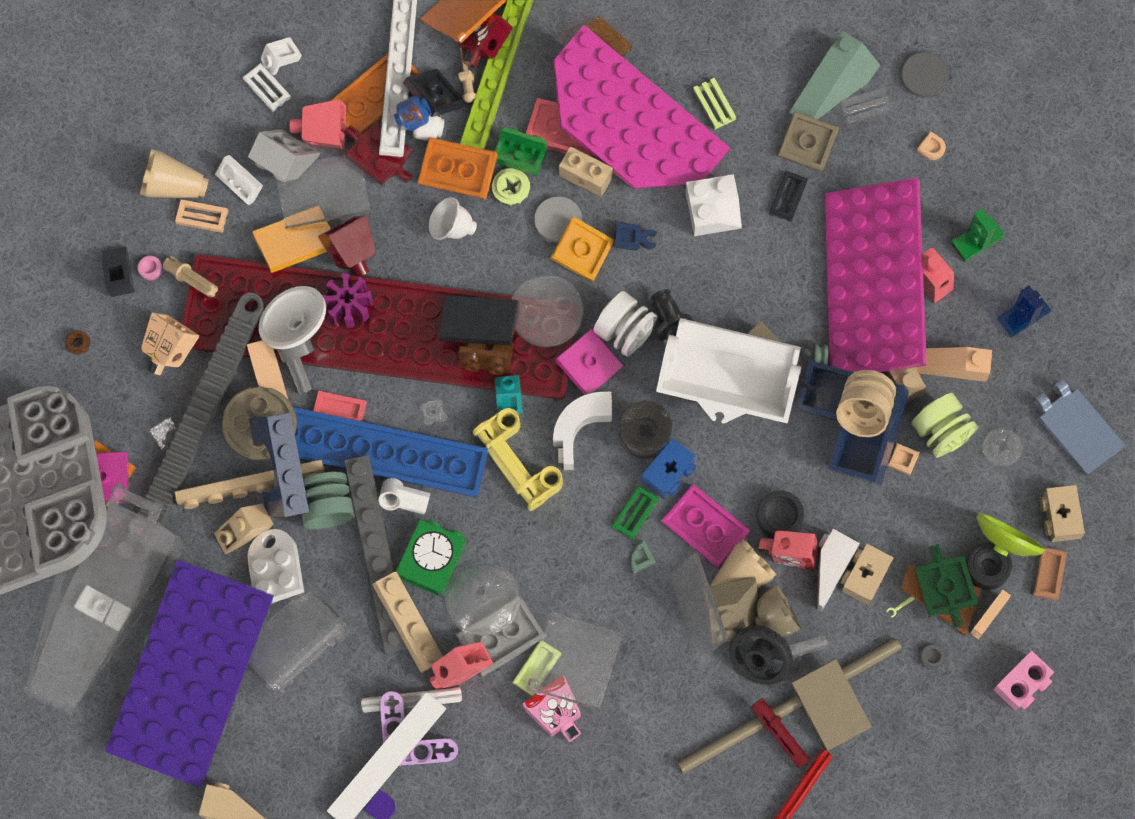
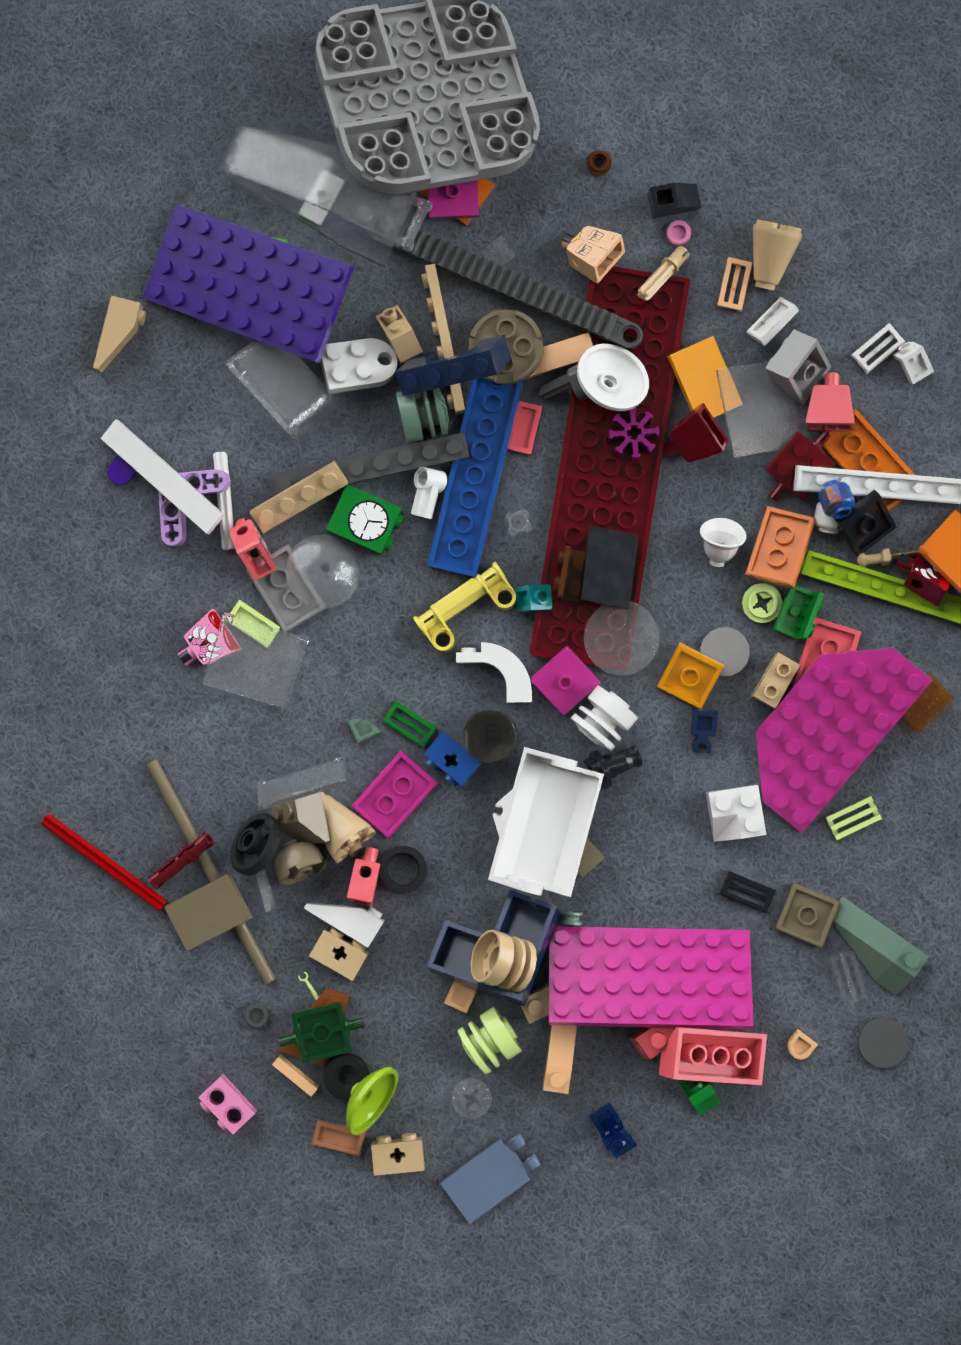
camera: 90 degrees right, 15 degrees up
(947, 215) = (714, 1056): none -> coral slope

